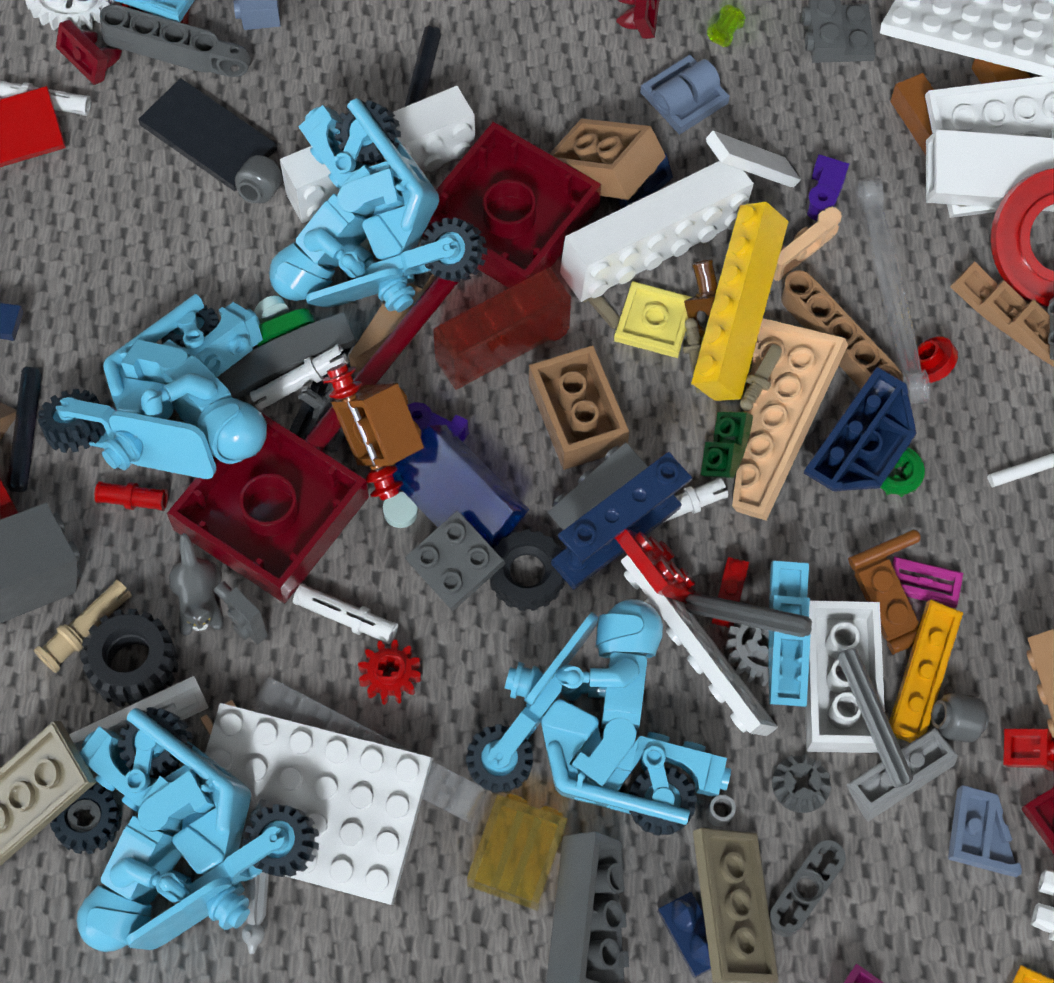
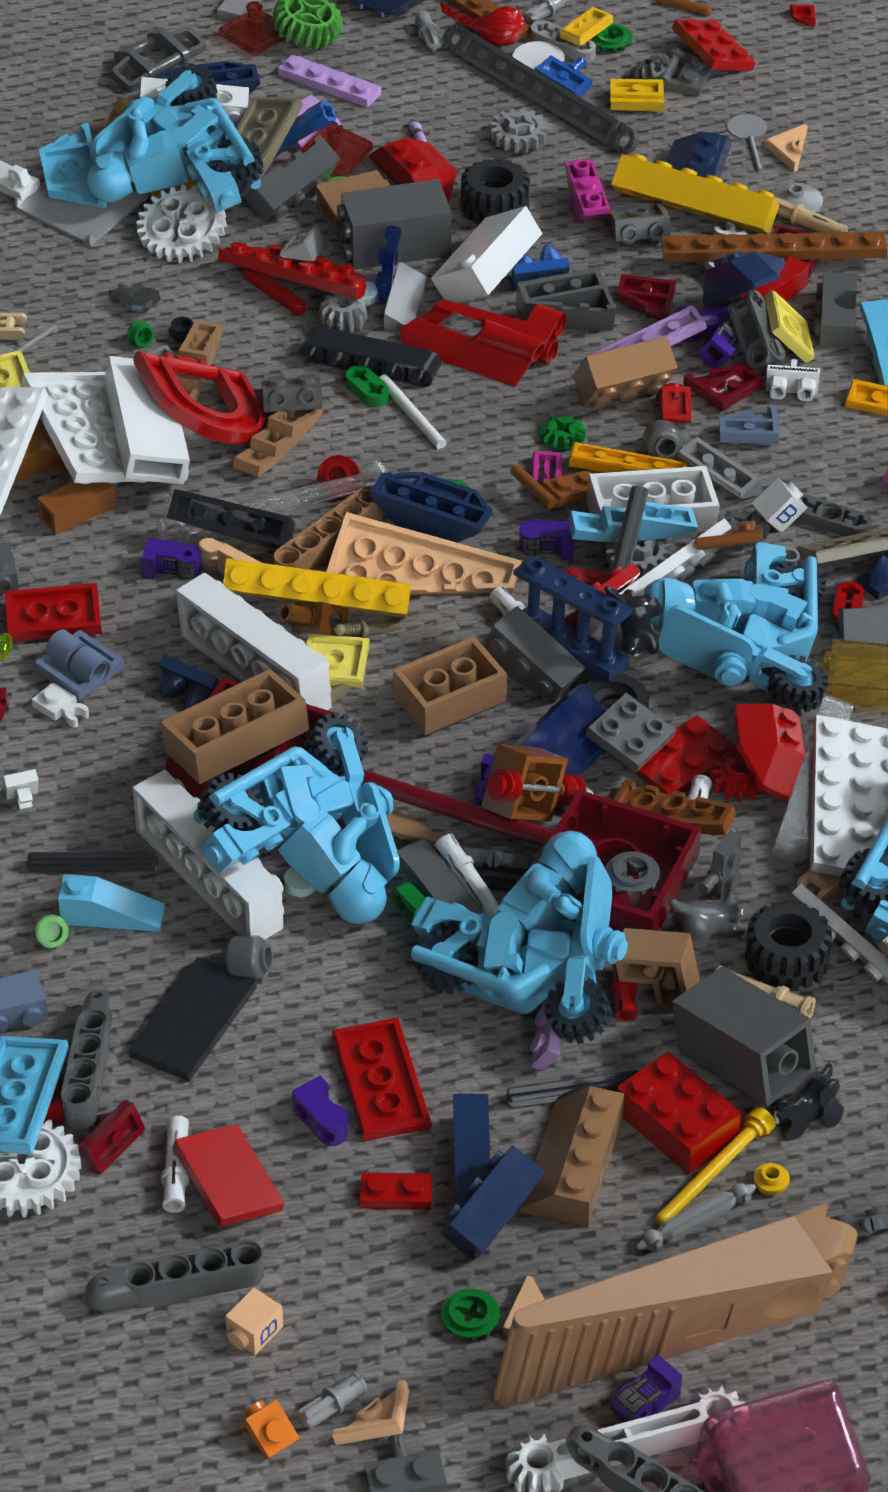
camera: 100 degrees left, 20 degrees down
(58, 211) = (319, 1113): none -> dark purple leg
(90, 271) = (381, 1079): none -> red tile
(120, 518) = (659, 960): none -> medium nougat brick
(210, 492) = (638, 864): none -> dark grey gear
(270, 308) = (397, 921): light aqua tile -> none
(337, 34) = (50, 931): none -> bright green tile
(347, 576) = (710, 815): none -> dark orange wing
(357, 69) = (103, 904): none -> medium azure slope
(413, 699) = (770, 745): none -> red wedge
(442, 639) = (685, 756): none -> red plate
(502, 328) = (395, 741): clear red brick -> none
(506, 170) = (234, 726): none -> medium nougat brick
(522, 29) = (21, 786): none -> white tile
(609, 584) = (636, 628): none -> black animal
(612, 154) = (182, 677): medium nougat brick -> none
(634, 74) = (59, 702): none -> white plate
(654, 861) = (843, 590): none -> red beam
(729, 444) = (456, 595): dark green slope -> none
(740, 749) = (744, 533): none -> dark orange plate
(752, 159) = (171, 583): white tile -> none
(759, 380) = (387, 573): dark tan piece -> none
(764, 81) = (44, 611): none -> red plate
(809, 548) = (546, 538): none -> dark purple leg
(818, 822) = (780, 504): none -> white brick
(858, 249) = (231, 519): none -> black slope
(875, 717) = (690, 466): dark grey axle -> none
(994, 628) = (559, 439): none -> green gear

